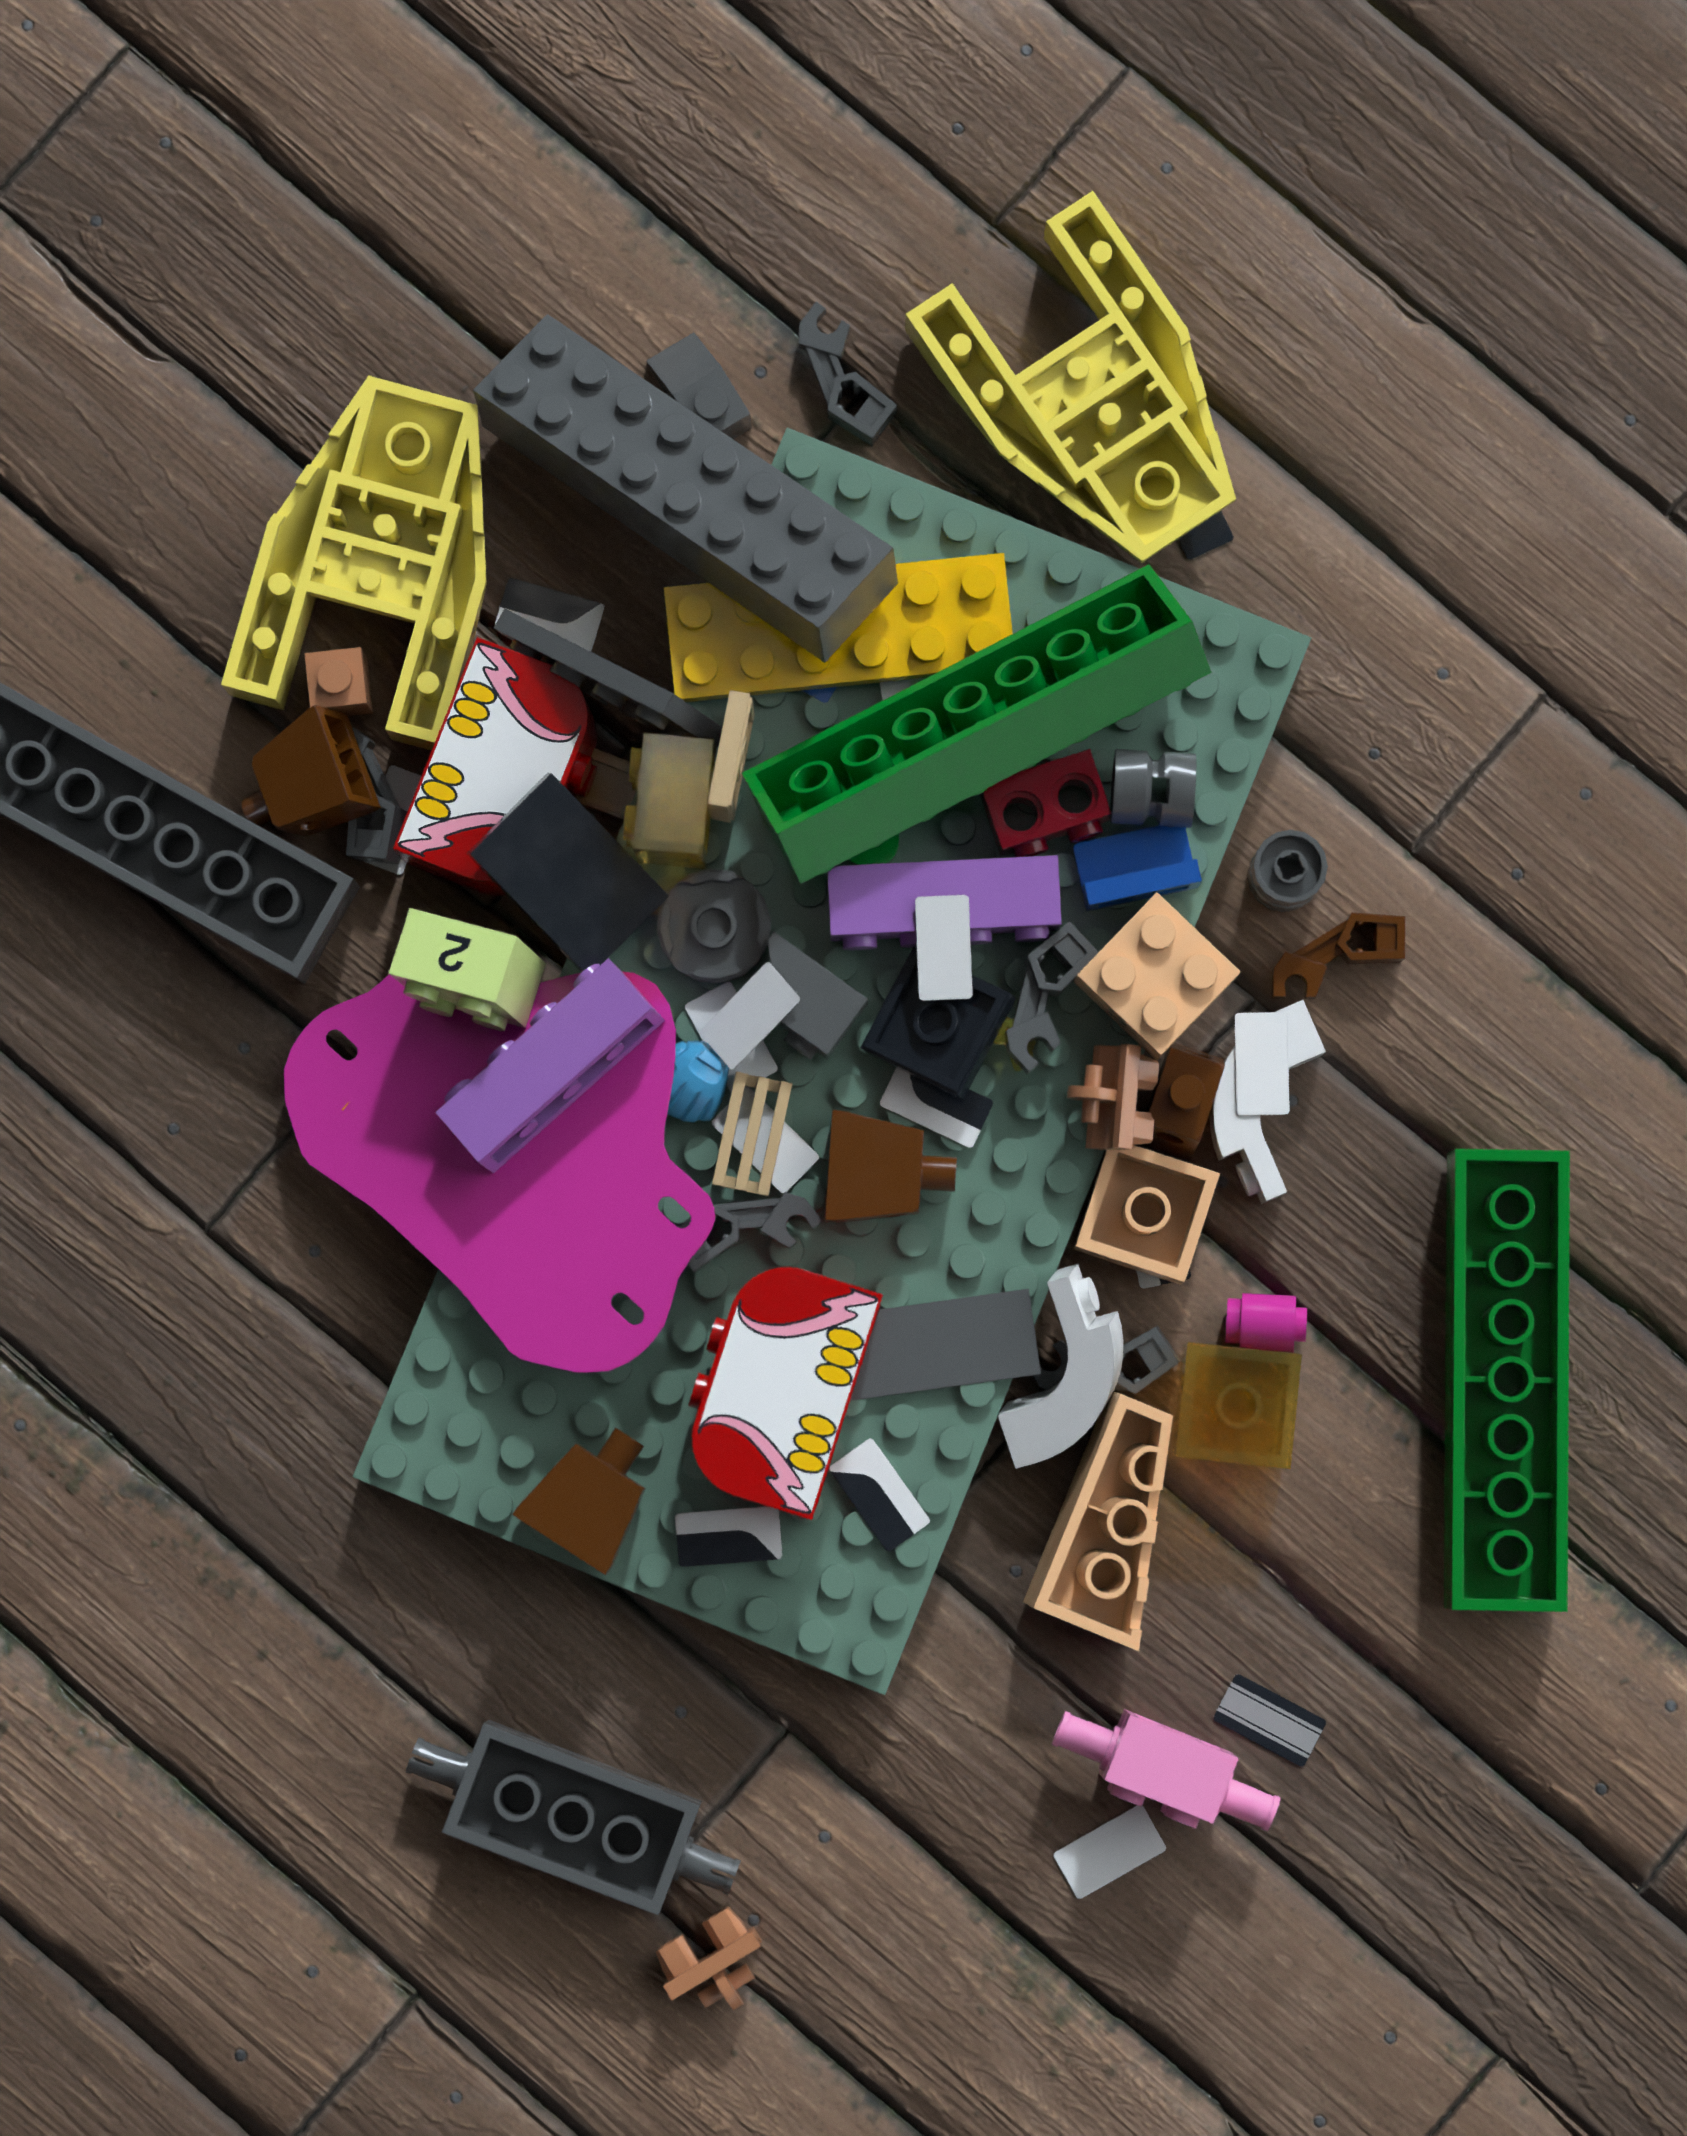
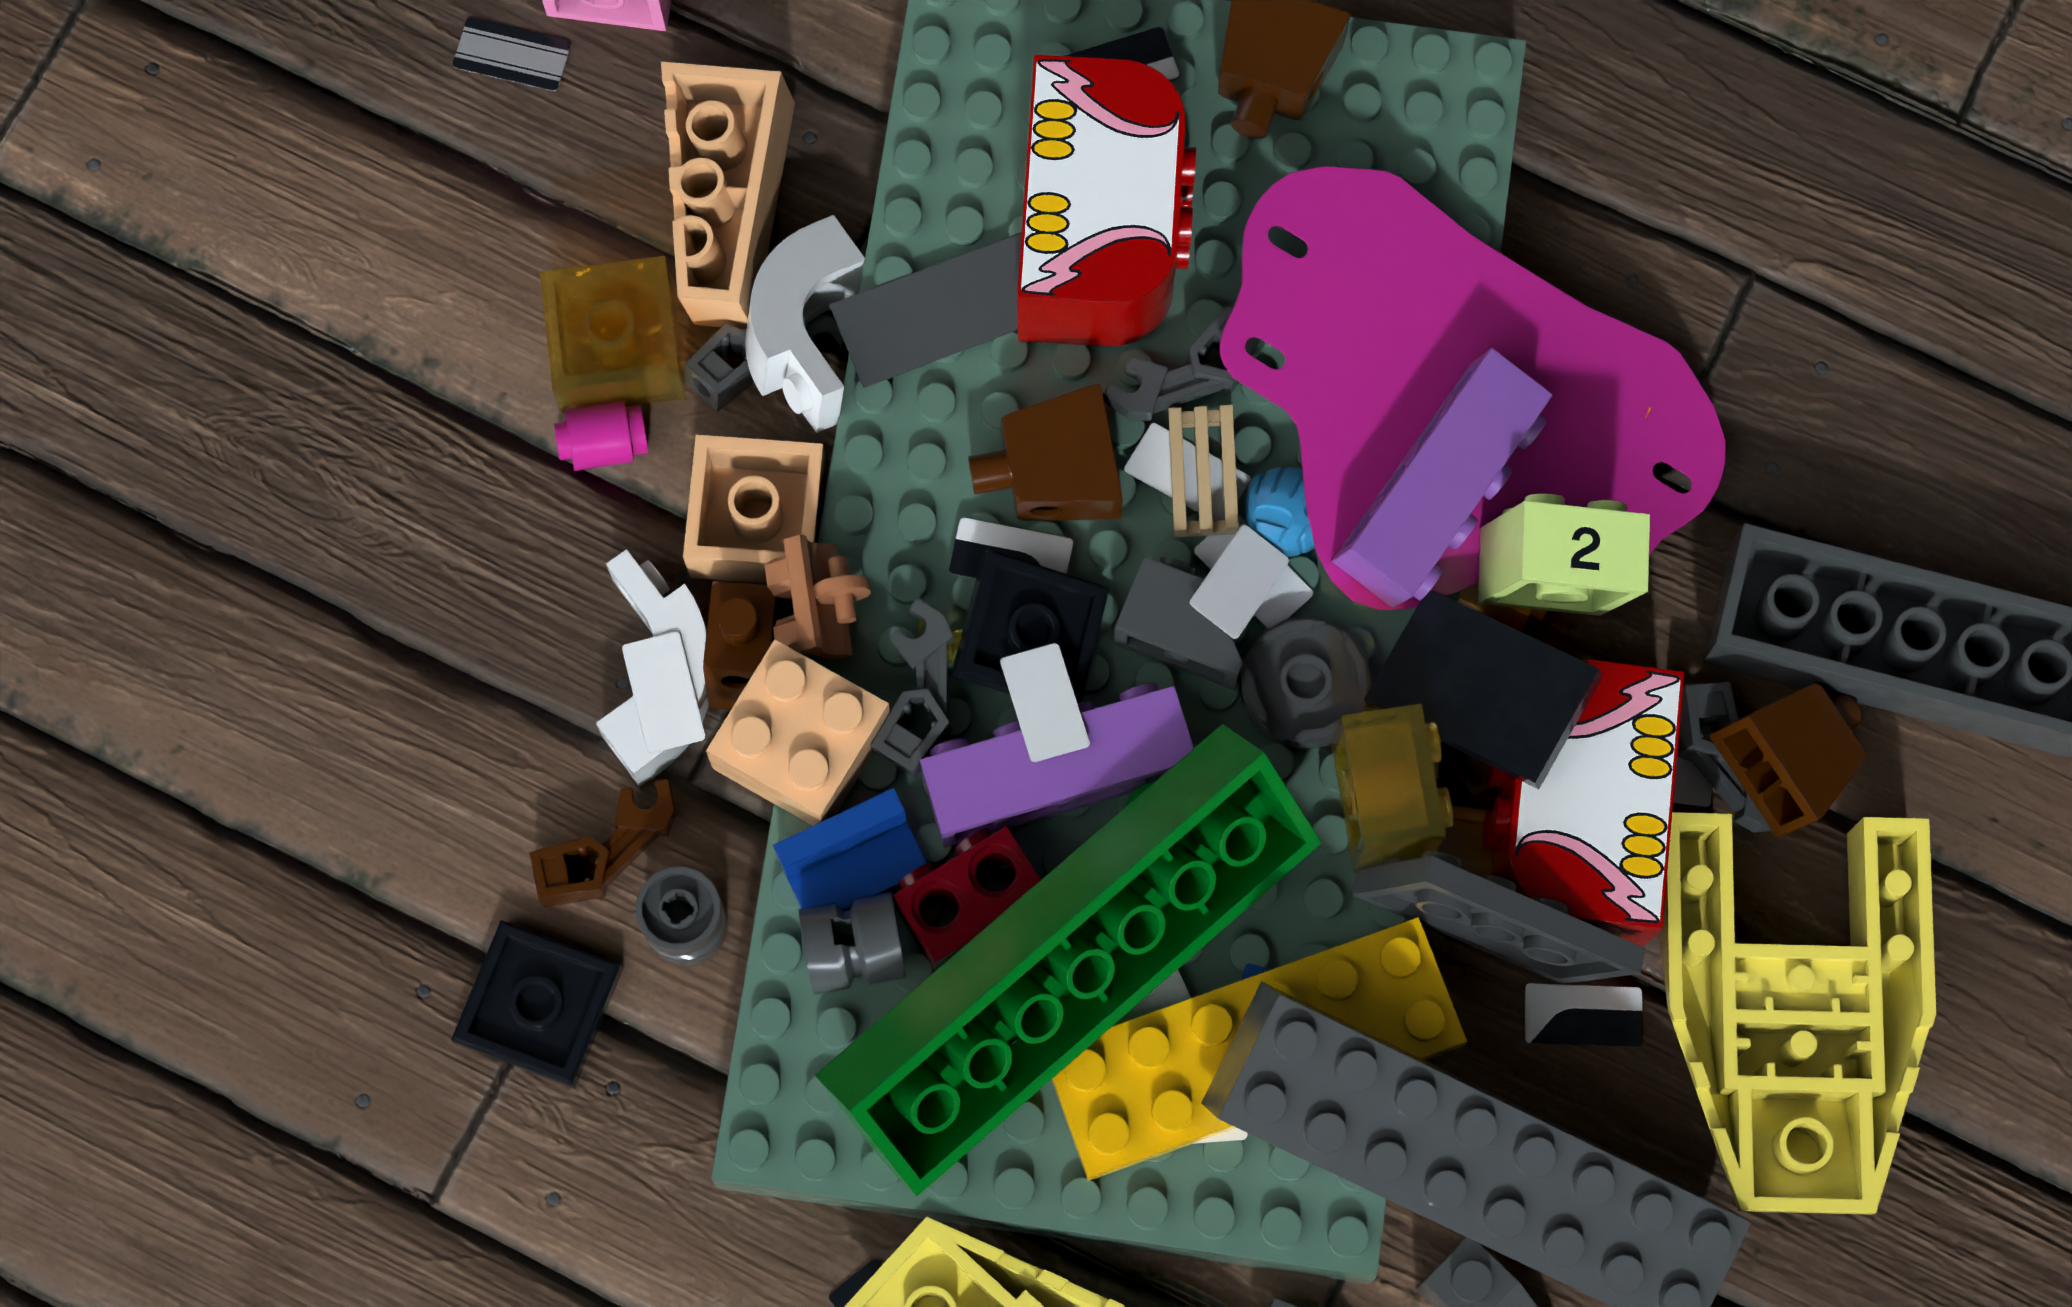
camera: 165 degrees right, 10 degrees down
(339, 681) = (1796, 868): nougat brick -> none
(731, 756) = (1338, 854): tan tile -> none
(879, 1494) = (970, 144): sticker -> none
(1423, 836) = (537, 1004): none -> black tile
(1507, 1380) = (327, 432): green brick -> none

